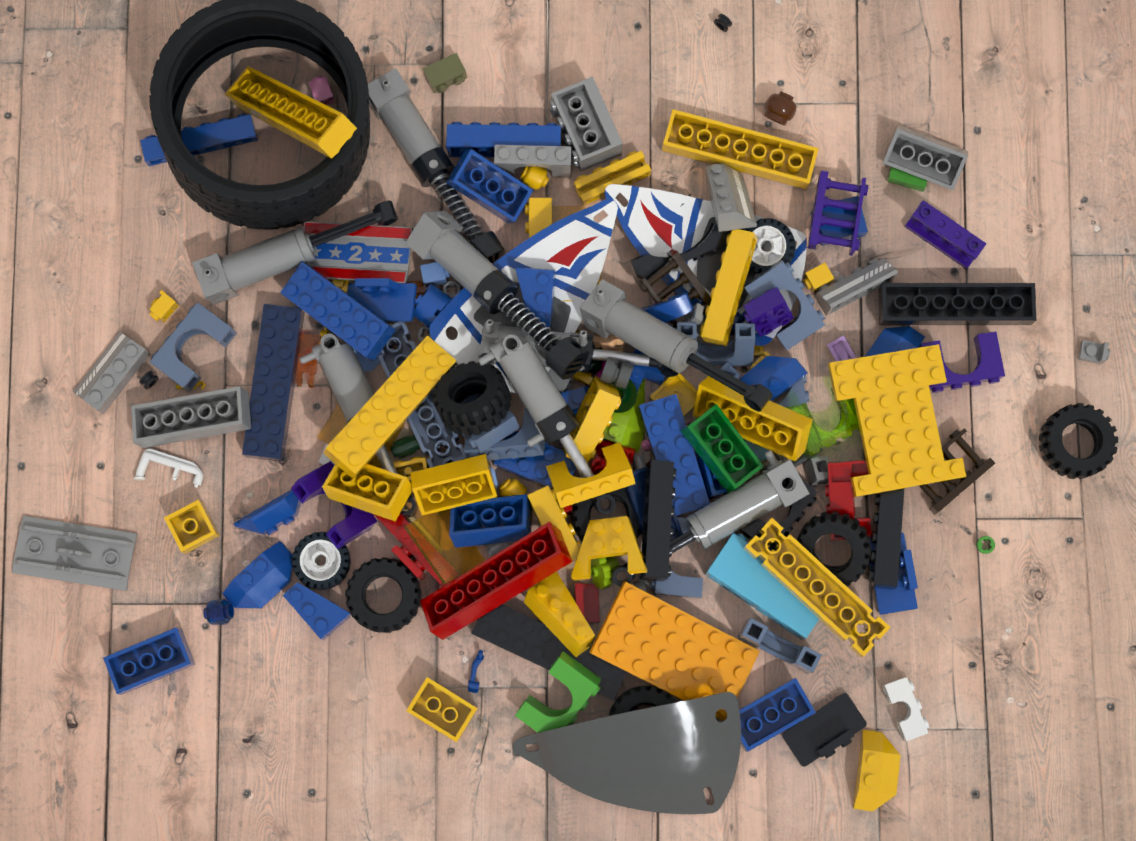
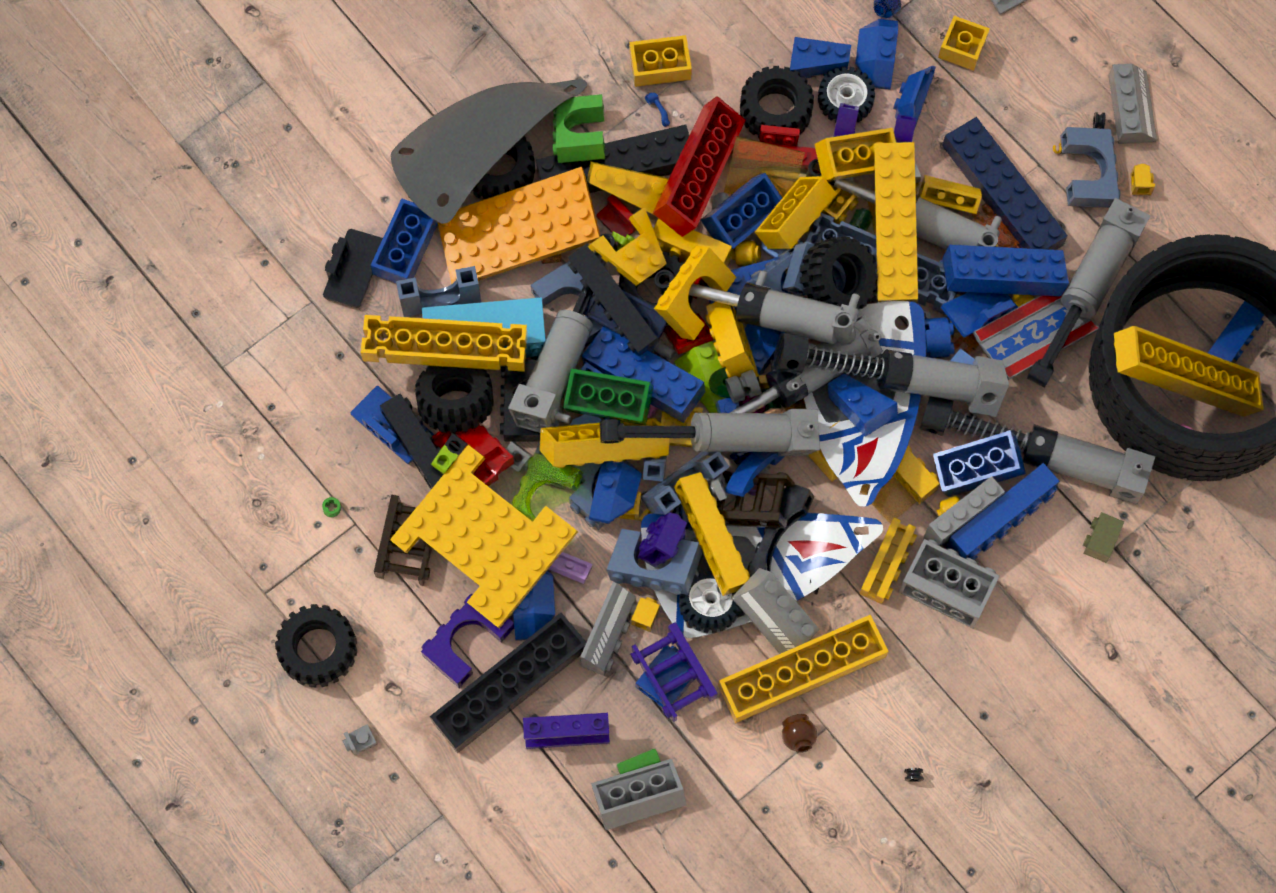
camera: 140 degrees right, 10 degrees down
(170, 461) = (1025, 79): white piece -> none
(191, 417) = (1039, 111): light grey brick -> none
(319, 409) = (950, 194): none -> yellow brick
(875, 504) = (448, 453): none -> lime leg
(876, 771) = (289, 269): yellow wedge -> none
(914, 724) = (314, 339): white arch -> none

